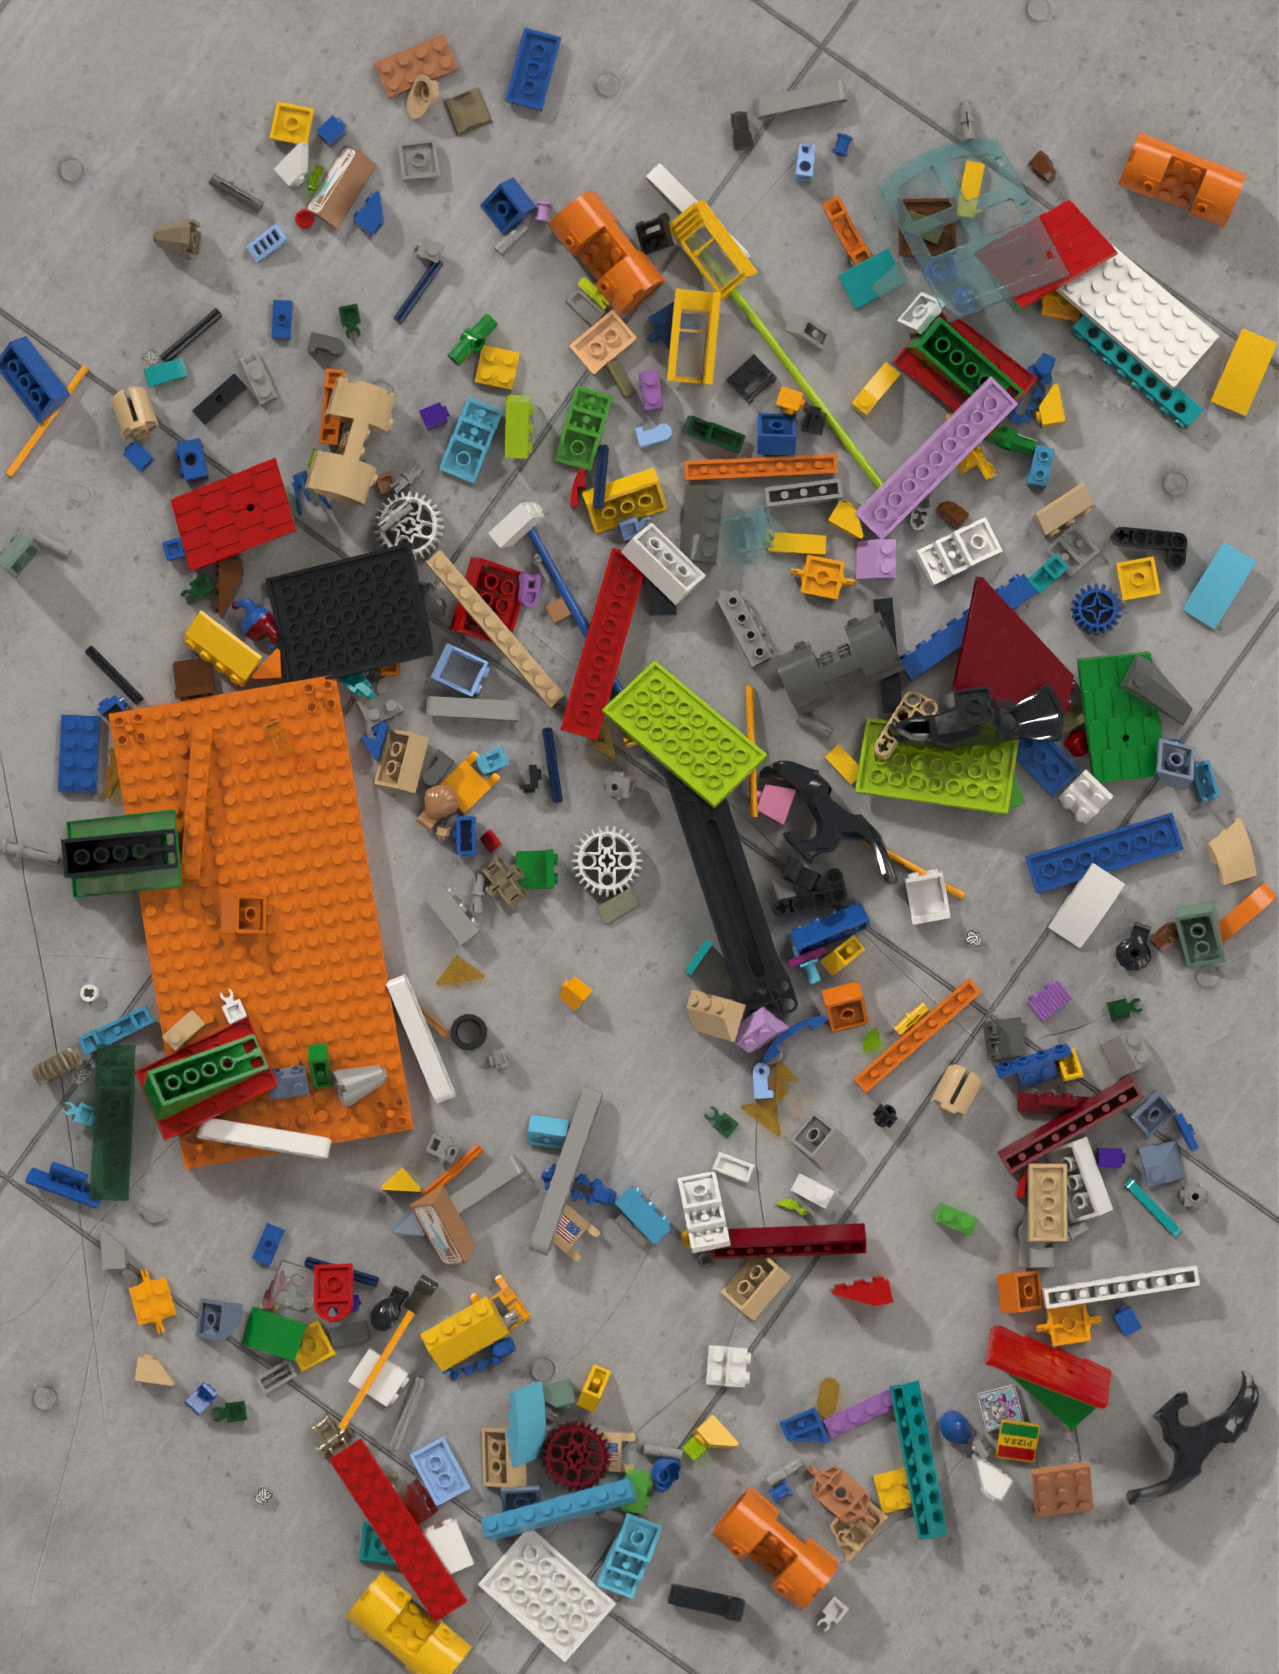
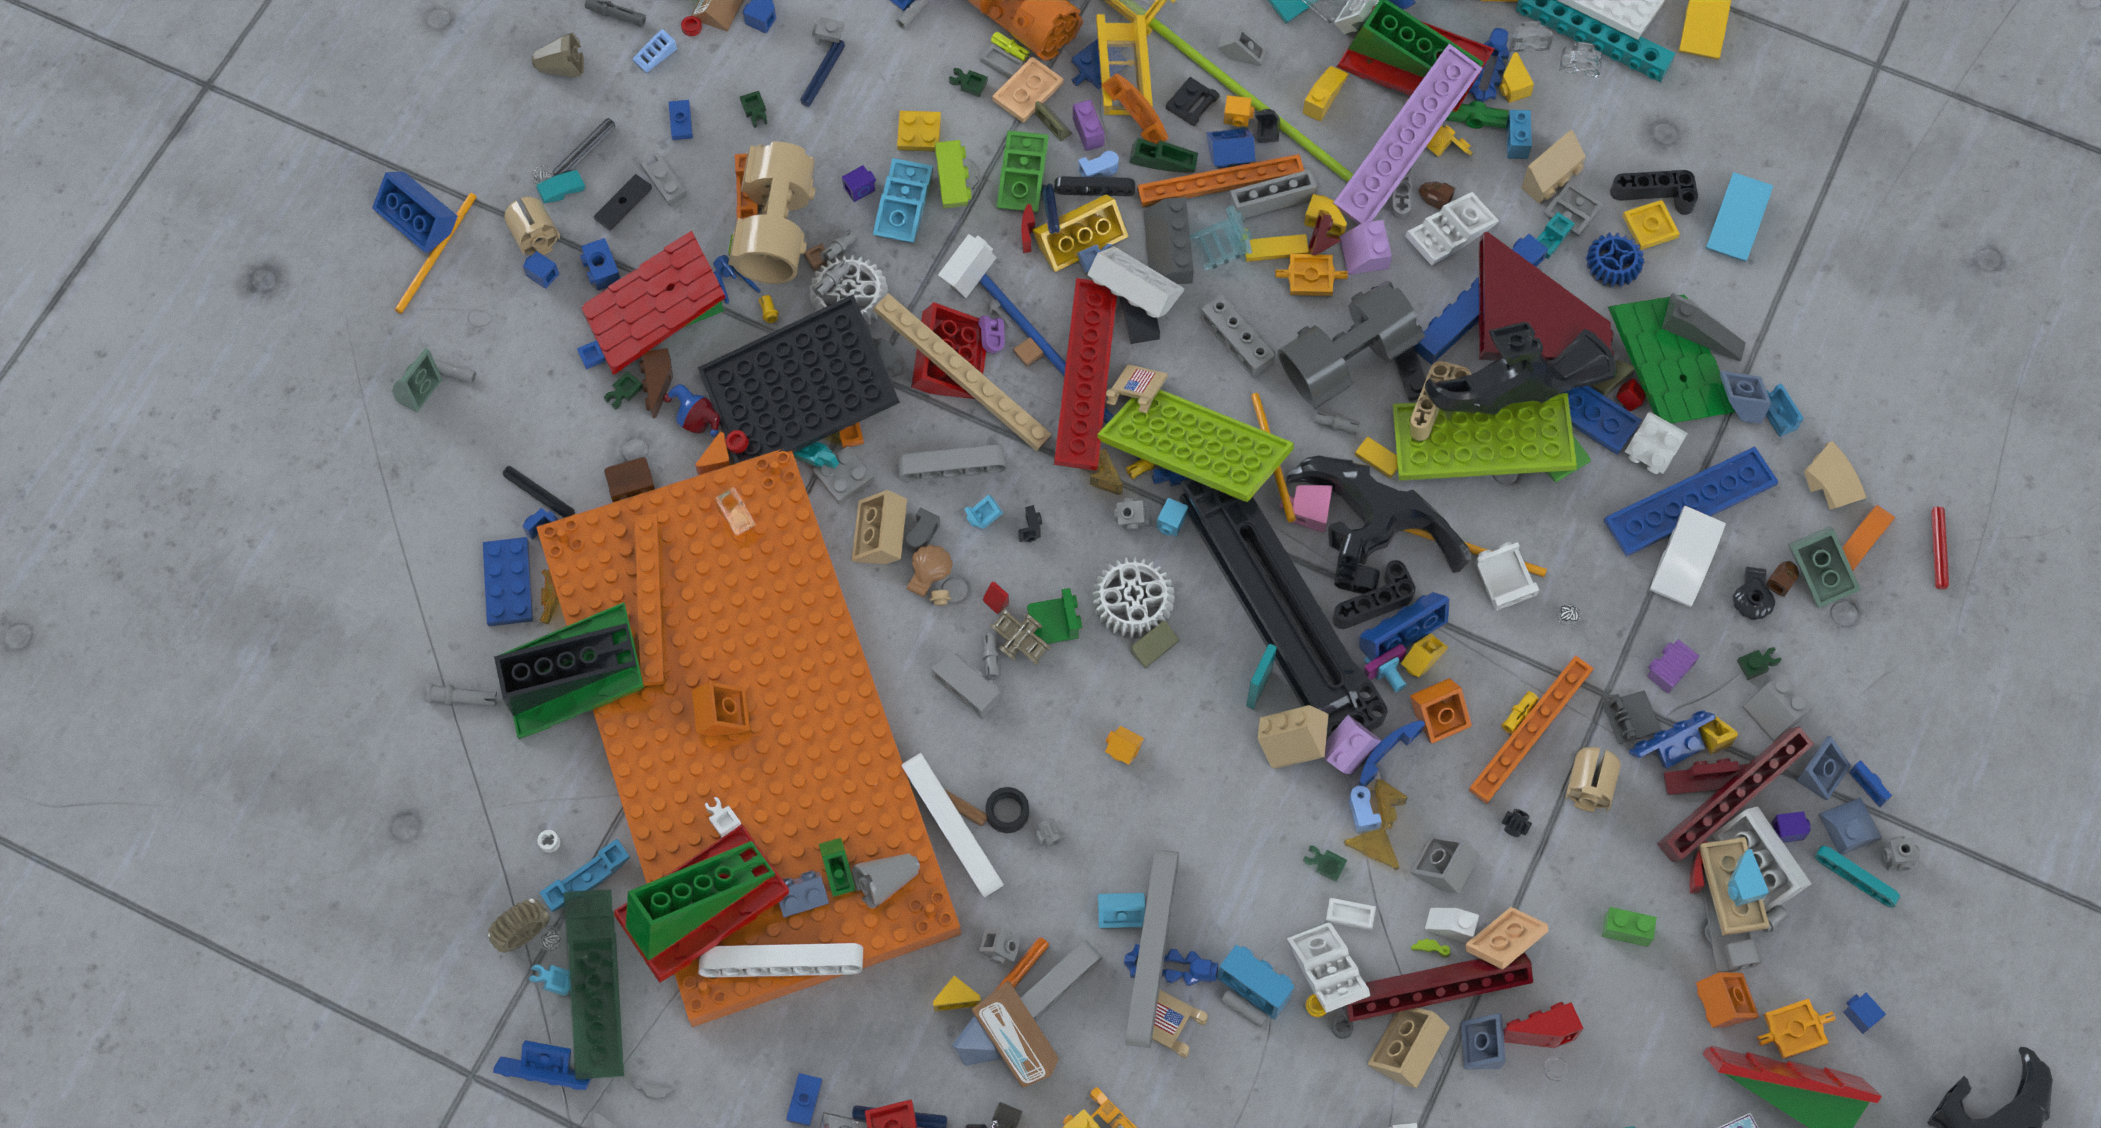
camera: 15 degrees left, 20 degrees down
(183, 1030) = (665, 853): tan slope -> none
(221, 649) = (658, 440): yellow slope -> none
(290, 660) = (737, 441): none -> red tile
(325, 343) = (731, 133): dark grey leg -> none
(335, 530) = (769, 315): none -> yellow pin
(375, 745) = (846, 515): blue slope -> none
(443, 661) = (935, 410): light blue window -> none
(458, 972) = (985, 746): clear yellow tile -> none
(466, 835) = (966, 594): blue brick -> none
(468, 783) = (961, 542): light orange flag -> none
(472, 340) = (888, 105): green piece -> none
(552, 326) = (971, 82): none -> dark green plate
(552, 765) = (1051, 508): dark blue axle -> none
(646, 454) = (1094, 186): none -> black beam
(647, 661) = (1137, 383): none -> tan flag
(653, 793) = (1172, 517): none -> medium azure brick
(701, 388) = (1137, 106): none -> orange slope
(815, 1292) = (1483, 1042): none -> sand blue slope
(839, 544) = (1320, 238): none -> dark red slope
(852, 1213) = (1506, 938): none -> light nougat plate
(871, 1040) = (1480, 744): clear neon green tile -> none
(1055, 1204) = (1747, 881): none -> medium azure slope
(1120, 1286) = (1846, 971): white brick -> none

